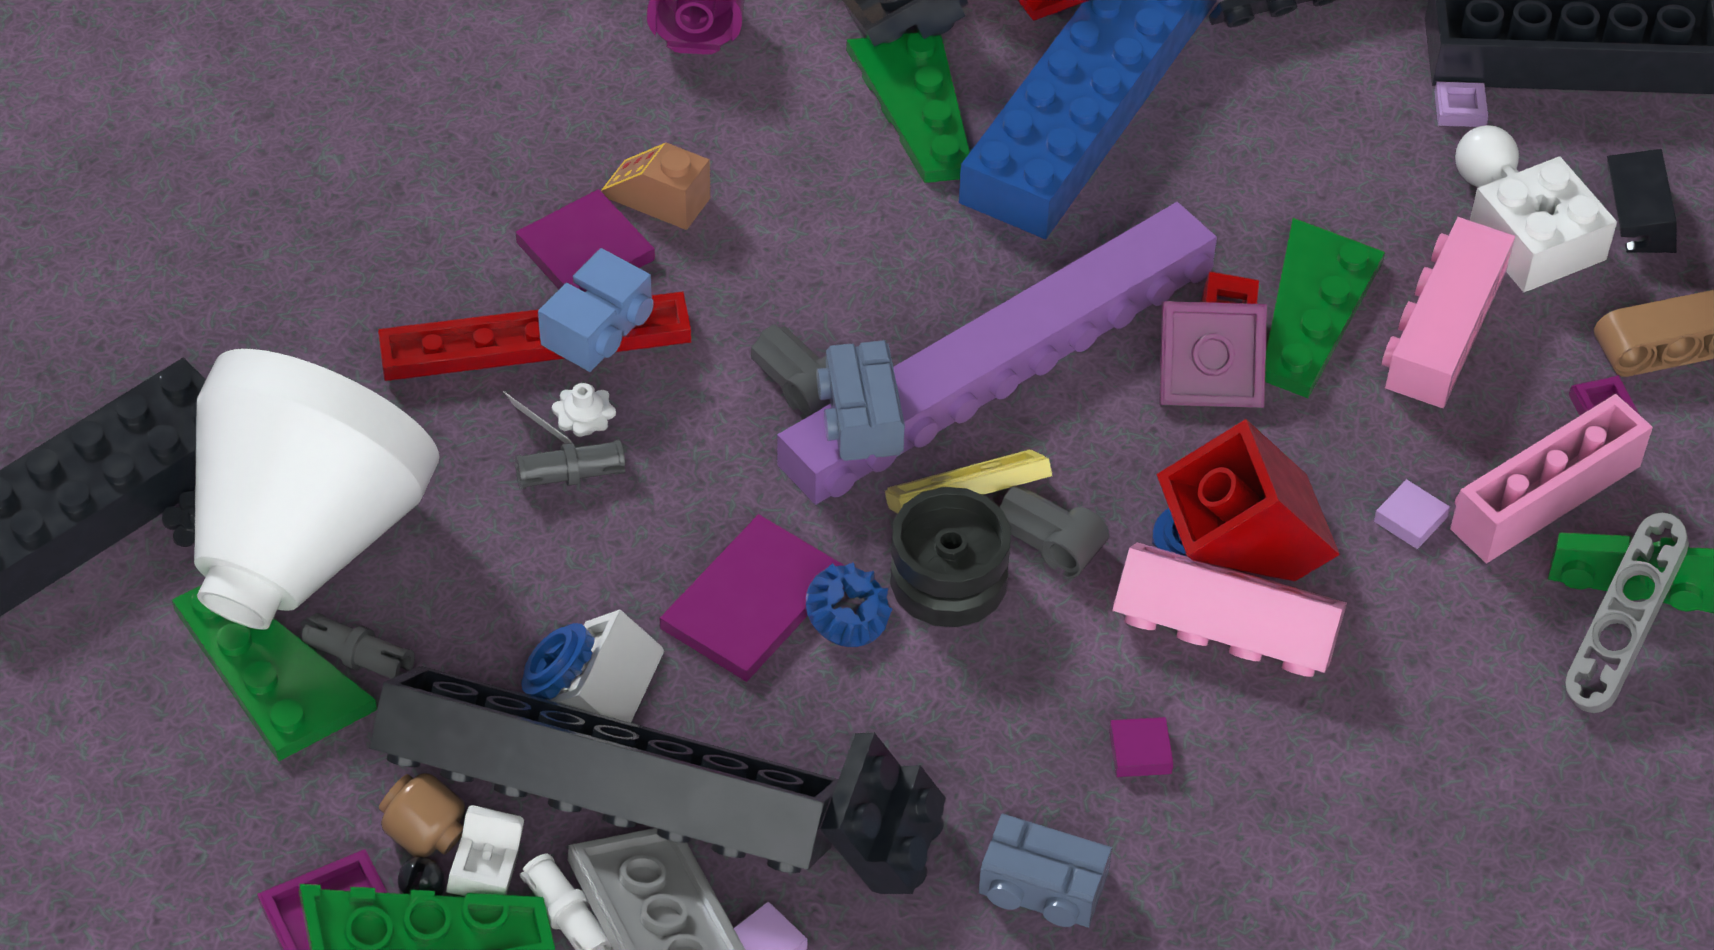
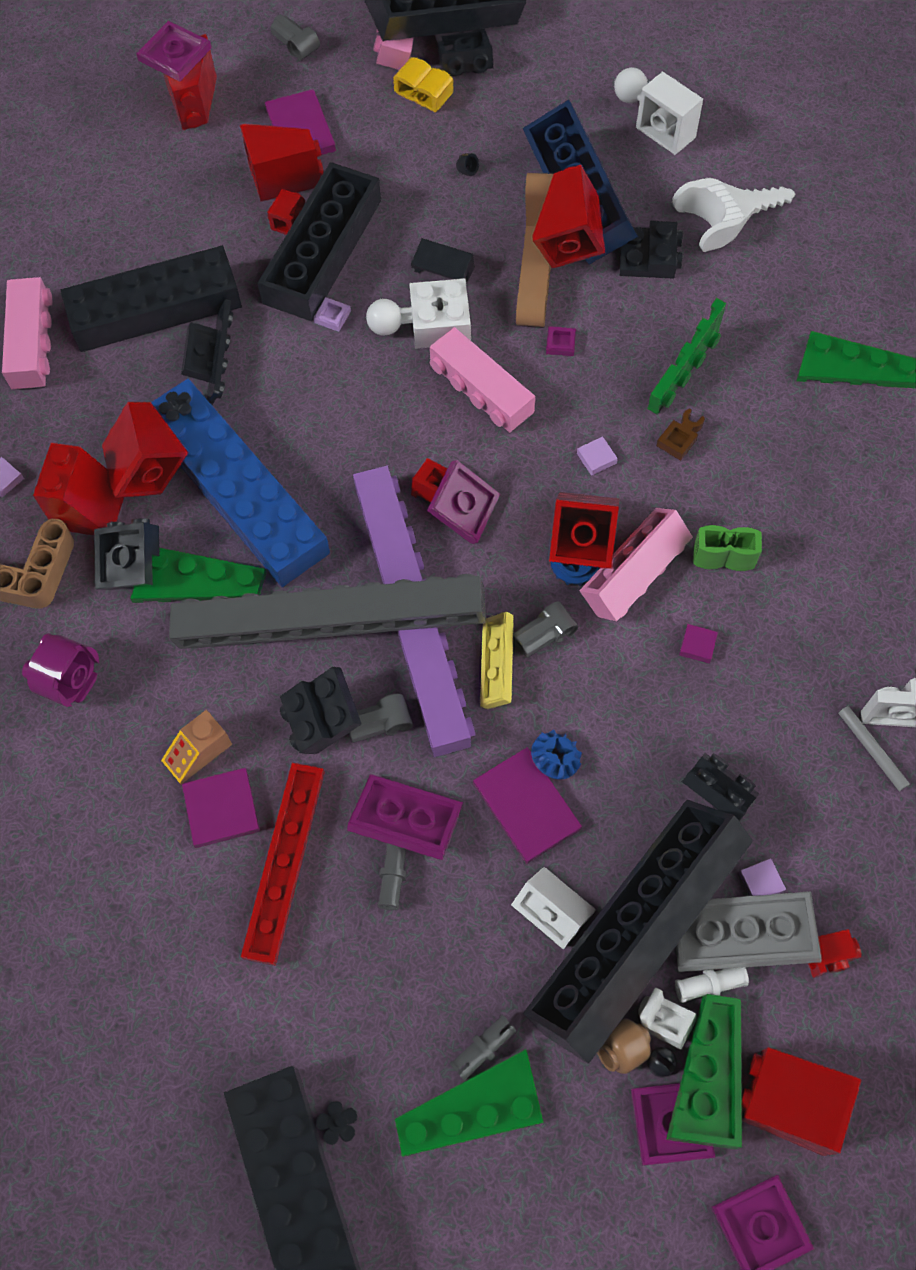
camera: 65 degrees left, 15 degrees up
(294, 480) = (382, 1054): white cone -> none
(537, 419) = (353, 880): white sticker -> none
(557, 661) = (543, 944): blue gear -> none
(583, 410) = (355, 852): white plant -> none
(592, 322) = (296, 817): medium blue piece -> none
(662, 448) = (405, 816): none -> magenta tile
(771, 290) = (319, 711): none -> black plate
(863, 401) = (438, 691): sand blue brick -> none
(934, 250) = (328, 612): none -> dark grey brick
(950, 556) = (556, 670): pearl dark grey wheel -> none
(1044, 871) = (767, 720): sand blue brick -> none
(1315, 302) = (436, 437): green wing -> none
(1328, 723) = (733, 548): none -> bright green brick
(1513, 614) = (680, 437): none -> reddish brown plate
(1550, 478) = (610, 383): bright pink brick -> none
(1621, 610) = (708, 389): light grey beam -> none

